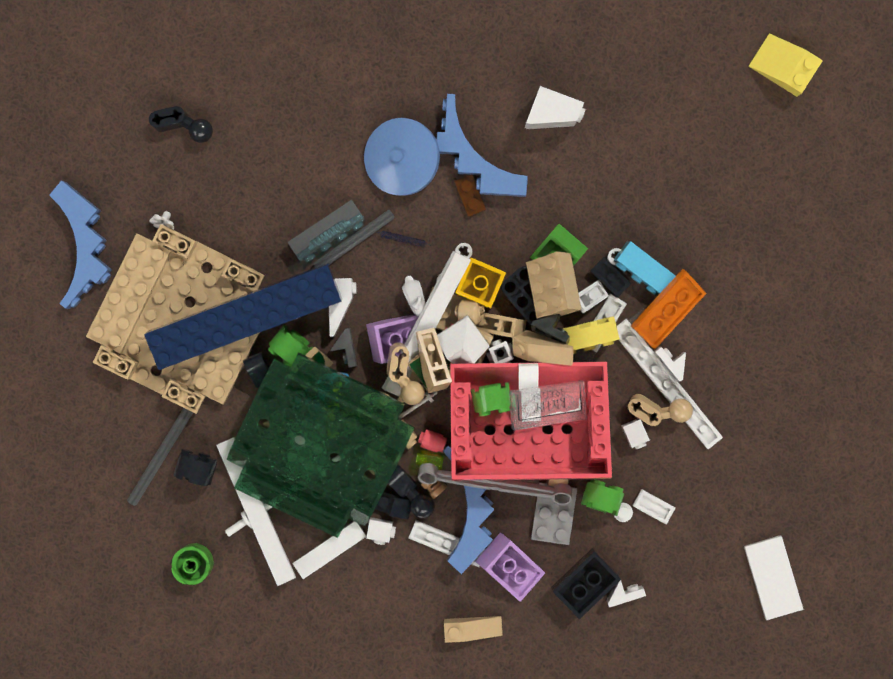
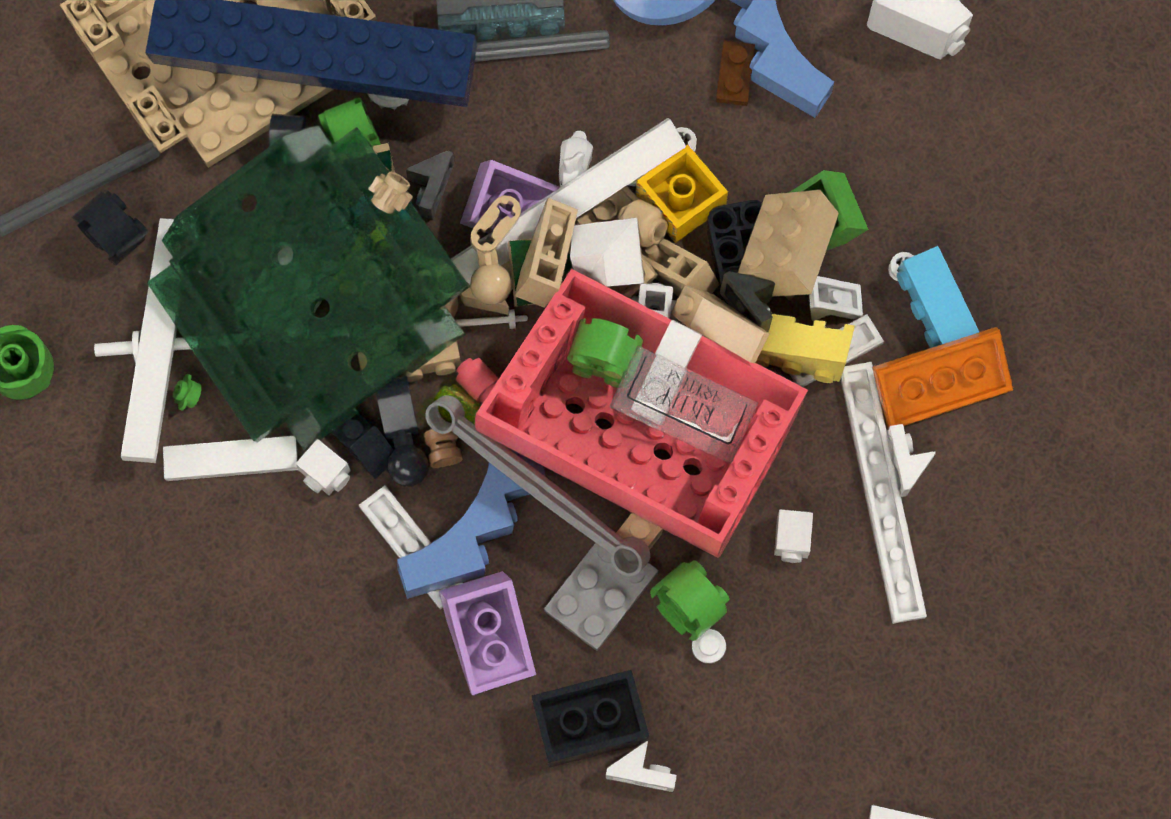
camera: 25 degrees right, 15 degrees down
(287, 529) = (186, 392): none -> bright green plate
(337, 311) = (457, 122): white slope -> none
(338, 384) = (390, 192): none -> tan gear
(403, 237) = (603, 75): dark blue piece -> none
(472, 628) = (373, 694): tan slope -> none
(610, 277) = (879, 290): black plate -> none
(653, 506) = (761, 665): white tile -> none
(679, 410) = (880, 531): tan beam -> none

